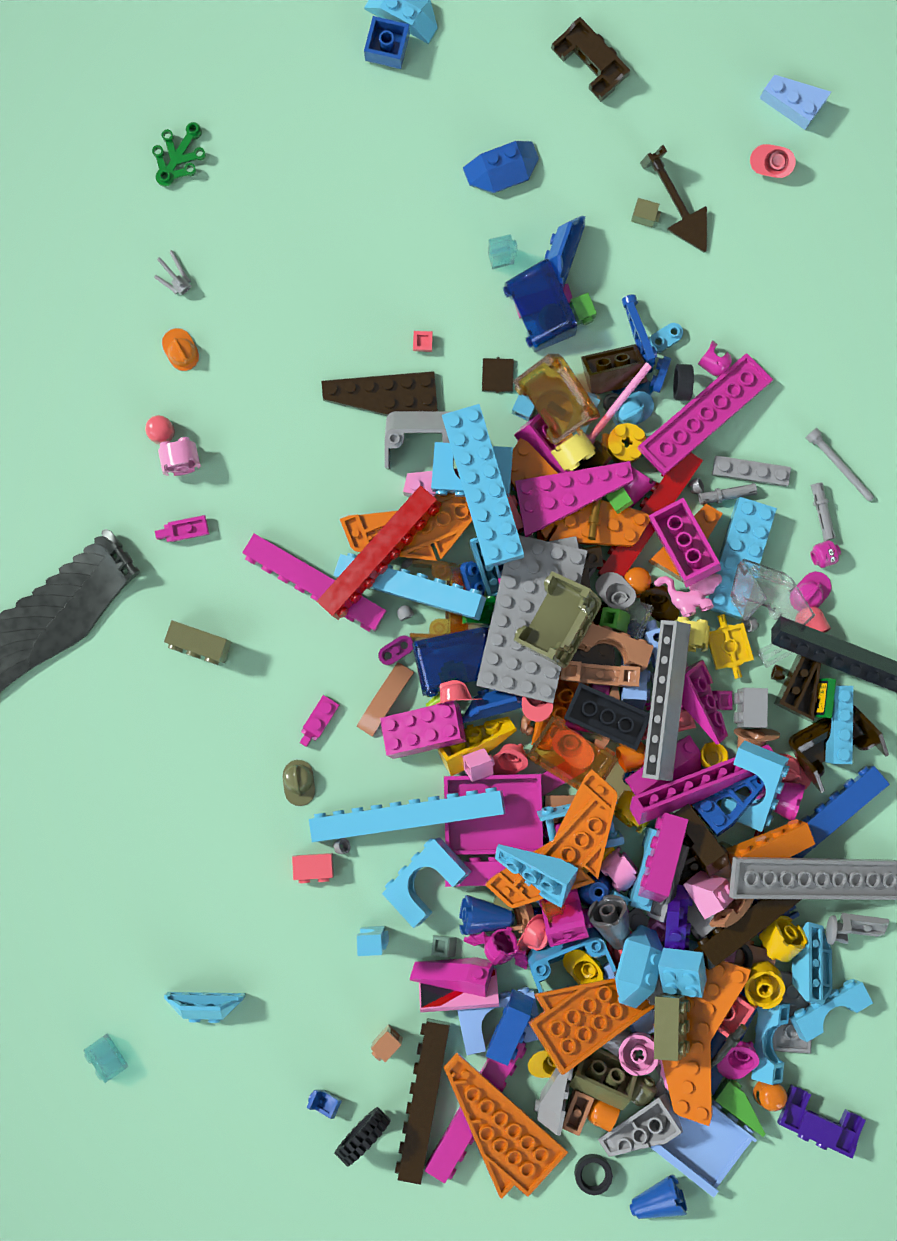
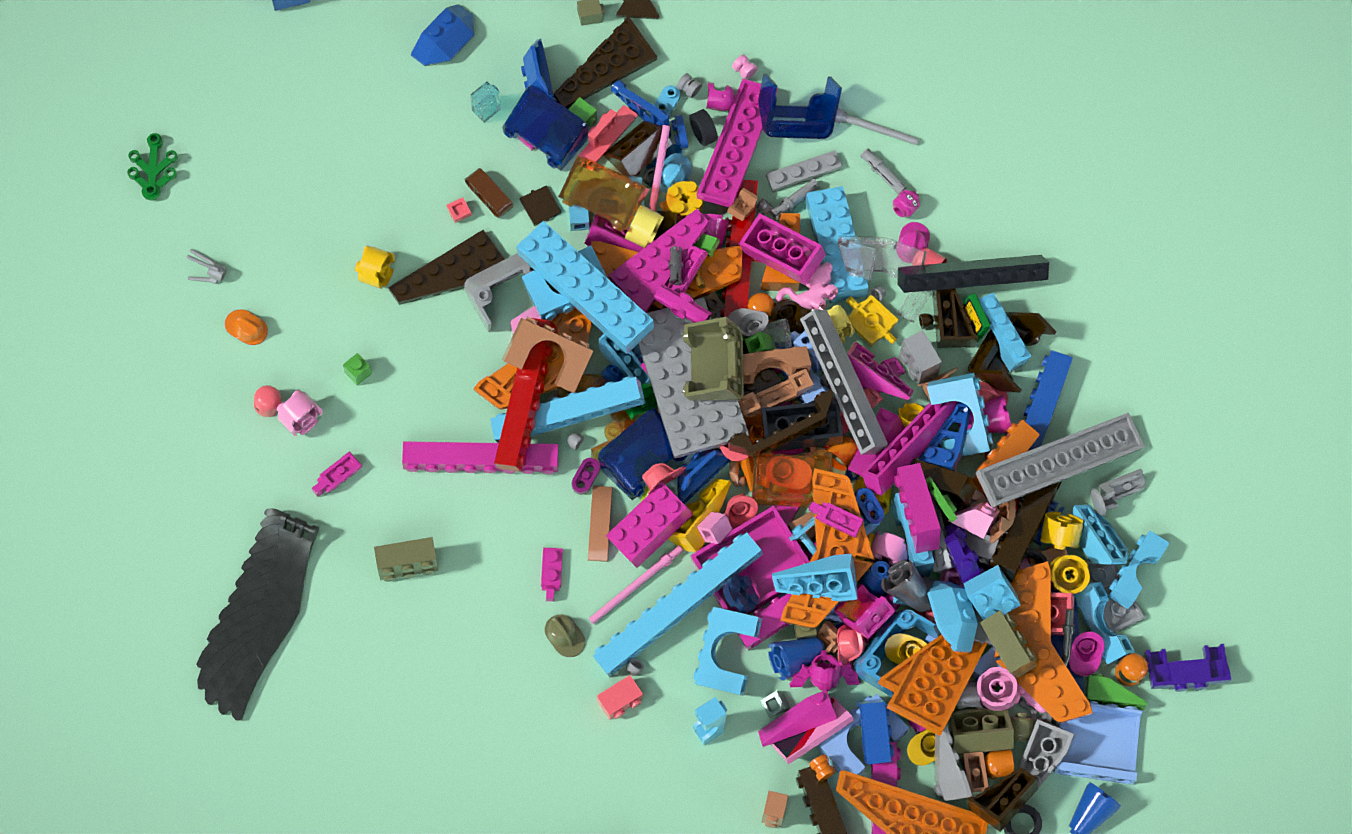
camera: 35 degrees left, 15 degrees down
(252, 442) = (357, 369): none -> bright green brick
(318, 356) = (375, 267): none -> yellow brick
(409, 504) = (575, 354): none -> nougat arch
(421, 765) = (664, 560): none -> bright pink bar
(446, 1034) = (822, 767): none -> orange wheel
(457, 339) = (488, 193): none -> reddish brown beam
(470, 848) = (743, 585): none -> dark blue plate
(562, 550) = (681, 304): none -> dark pink piece
(578, 507) = (675, 265): none -> flat silver pin
(583, 517) = (692, 261): none -> dark pink tile
(585, 827) = (837, 518): none -> dark pink hinge
(587, 1152) = (1004, 800): none -> dark brown wedge
(594, 339) = (607, 132): none -> coral bracket
(620, 824) = (868, 504): none -> blue plate
(634, 713) = (741, 443): none -> dark brown slope
(638, 272) = (611, 61): none -> dark brown wing
(675, 478) = (743, 205): none -> nougat bracket
(689, 864) = (944, 501): none -> bright green wing
(694, 333) = (689, 86): none -> light grey wheel
(755, 342) = (744, 67): none -> bright pink wheel
(774, 422) = (809, 121): none -> clear blue windscreen

